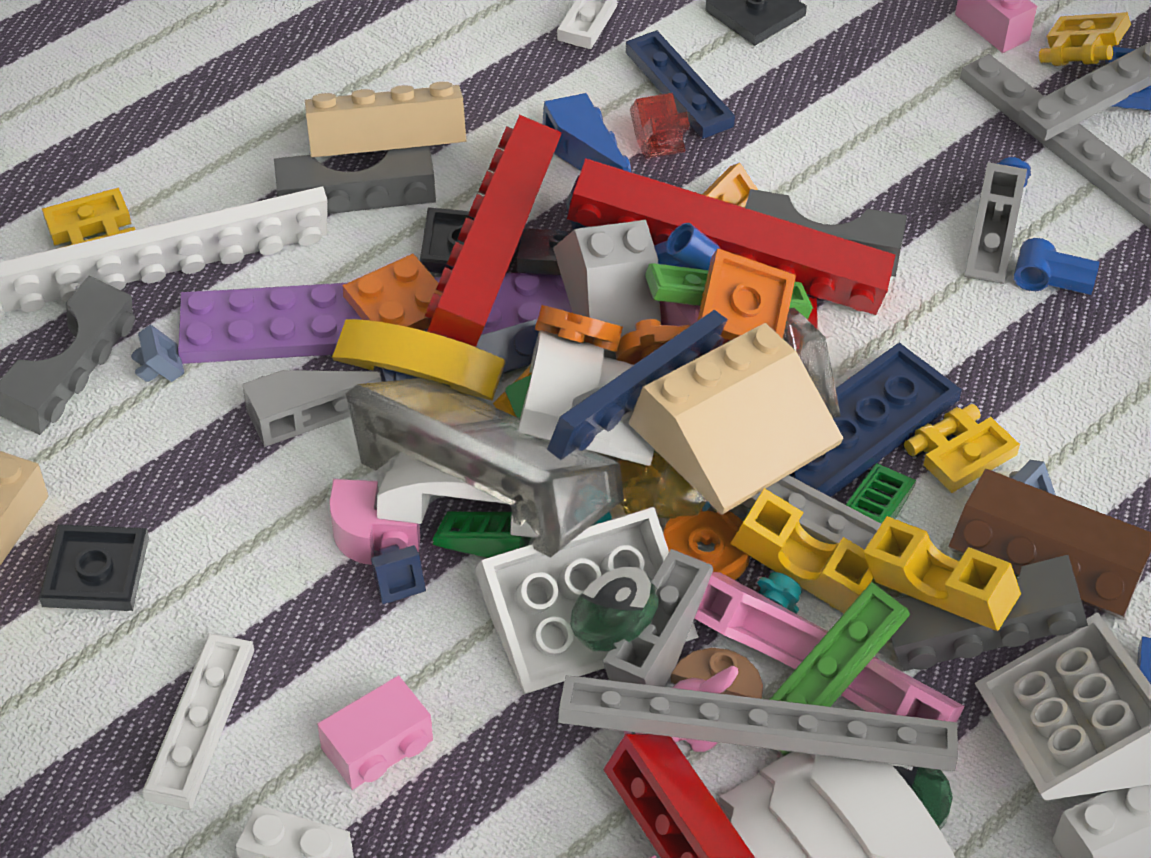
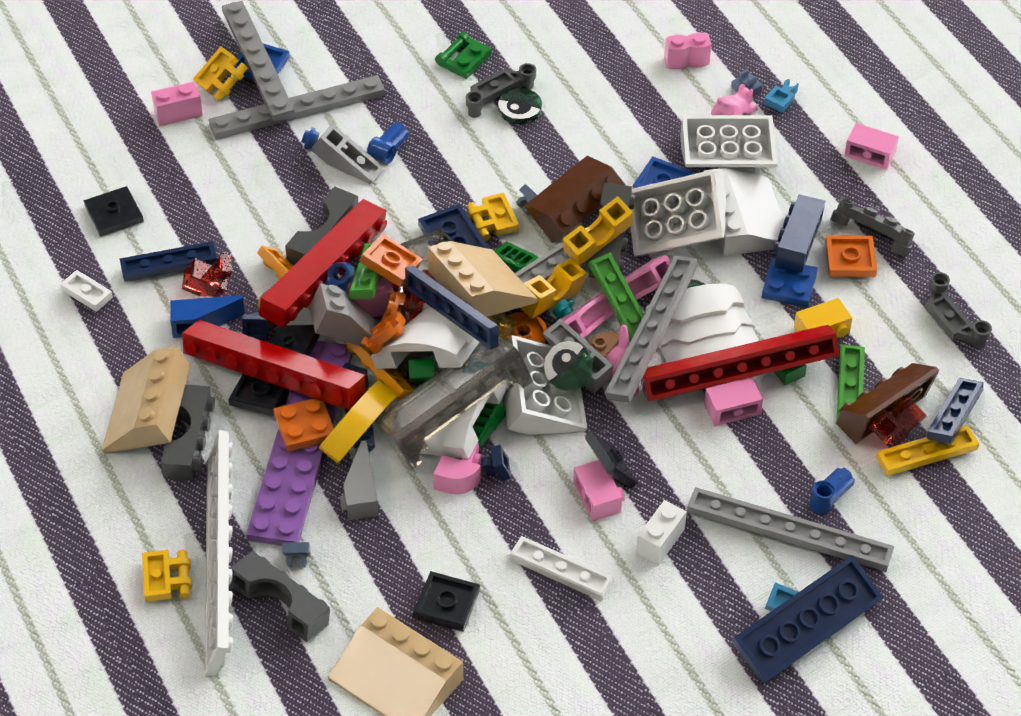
camera: 75 degrees left, 0 degrees up
(434, 730) = (610, 459): none -> black plate

